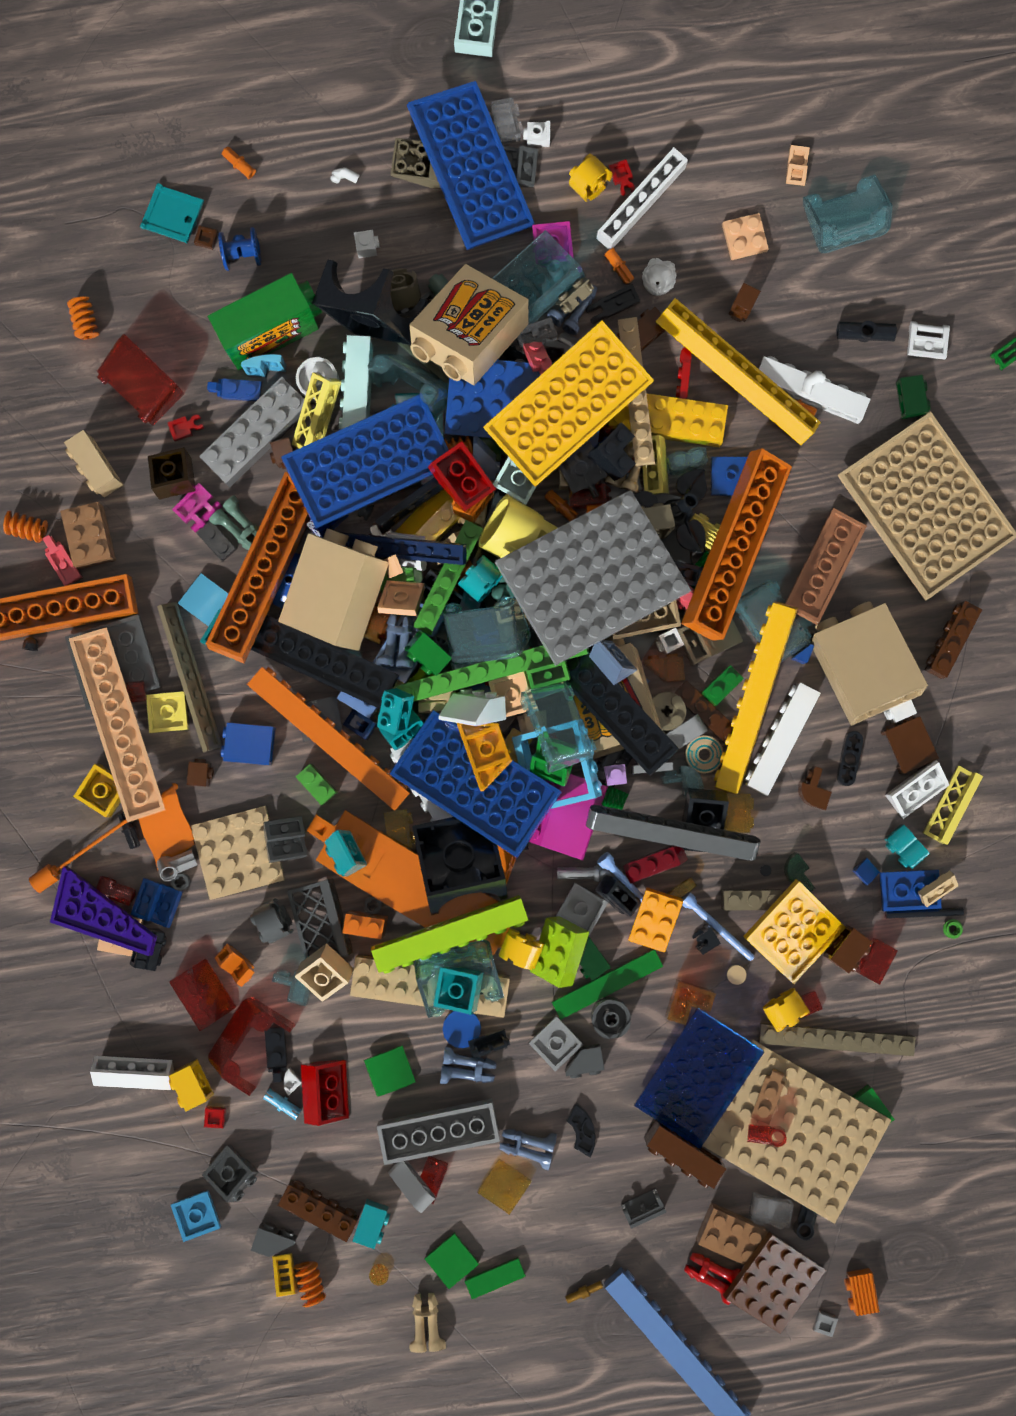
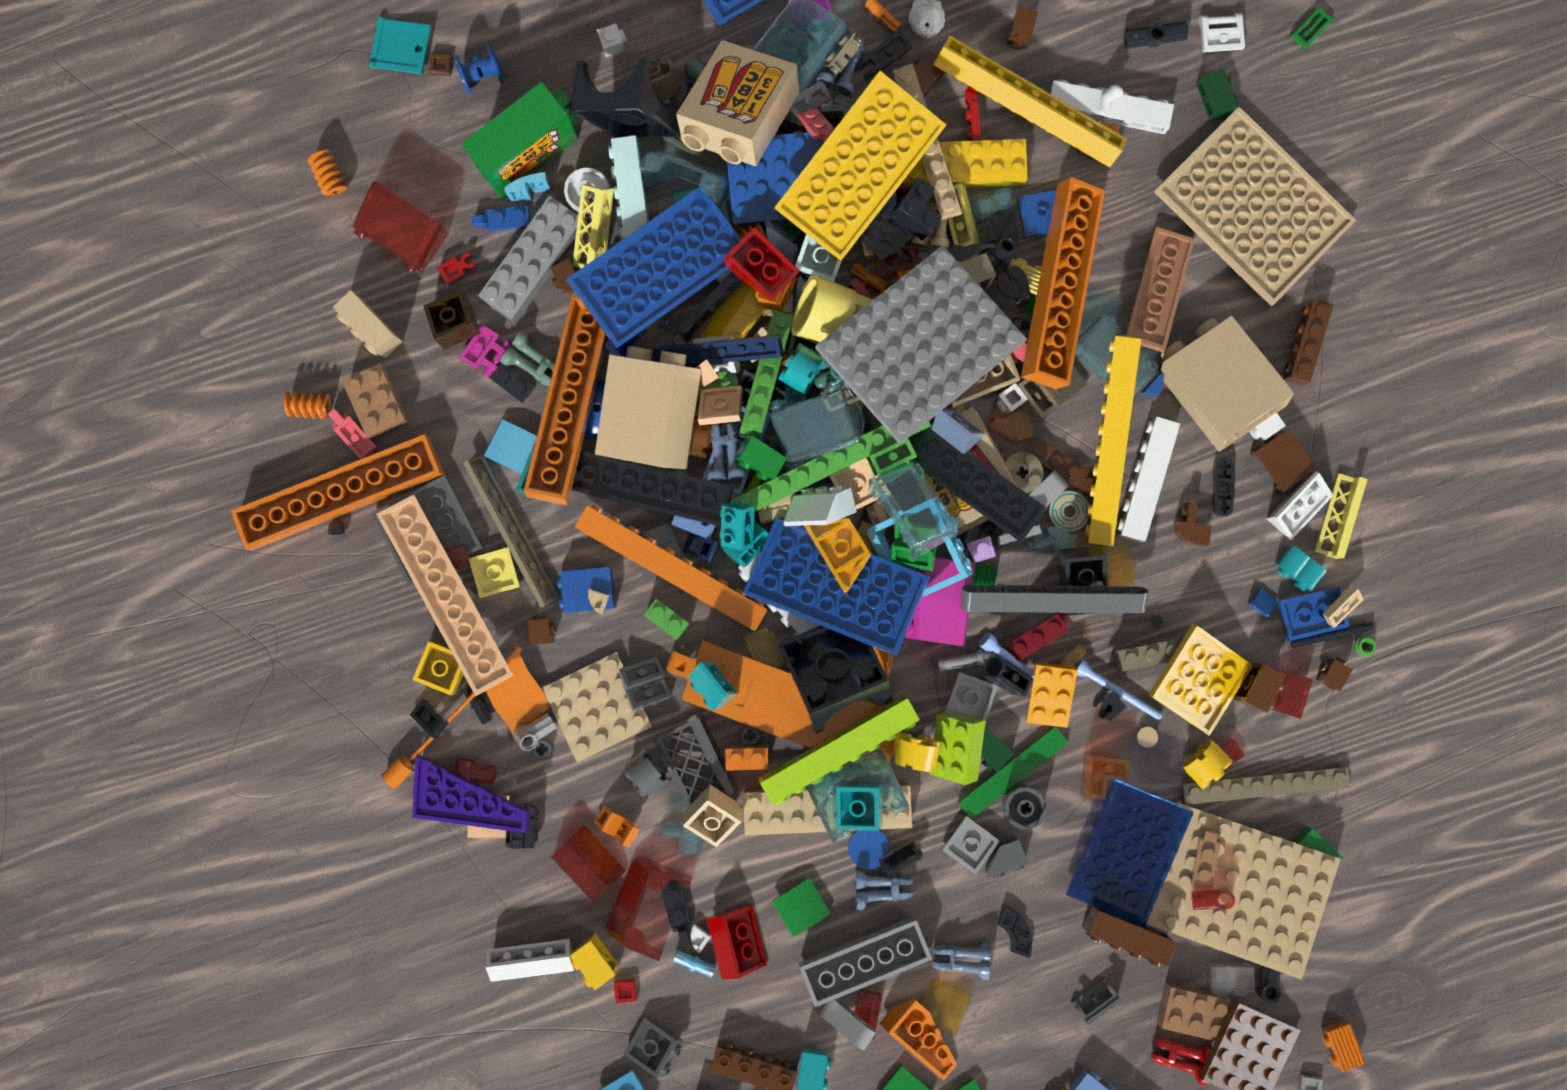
camera: 10 degrees left, 0 degrees up
(82, 835) = (429, 719): none -> black plate
(156, 902) = (521, 776): blue slope -> none
(256, 755) = (598, 600): none -> tan tile
(474, 1206) = (917, 1032): none -> orange wedge
(550, 514) = (860, 287): none -> red plate
(722, 685) = (1075, 435): green brick -> none
(795, 869) = (1188, 613): clear green brick -> none
(919, 948) = (1334, 673): none -> reddish brown brick

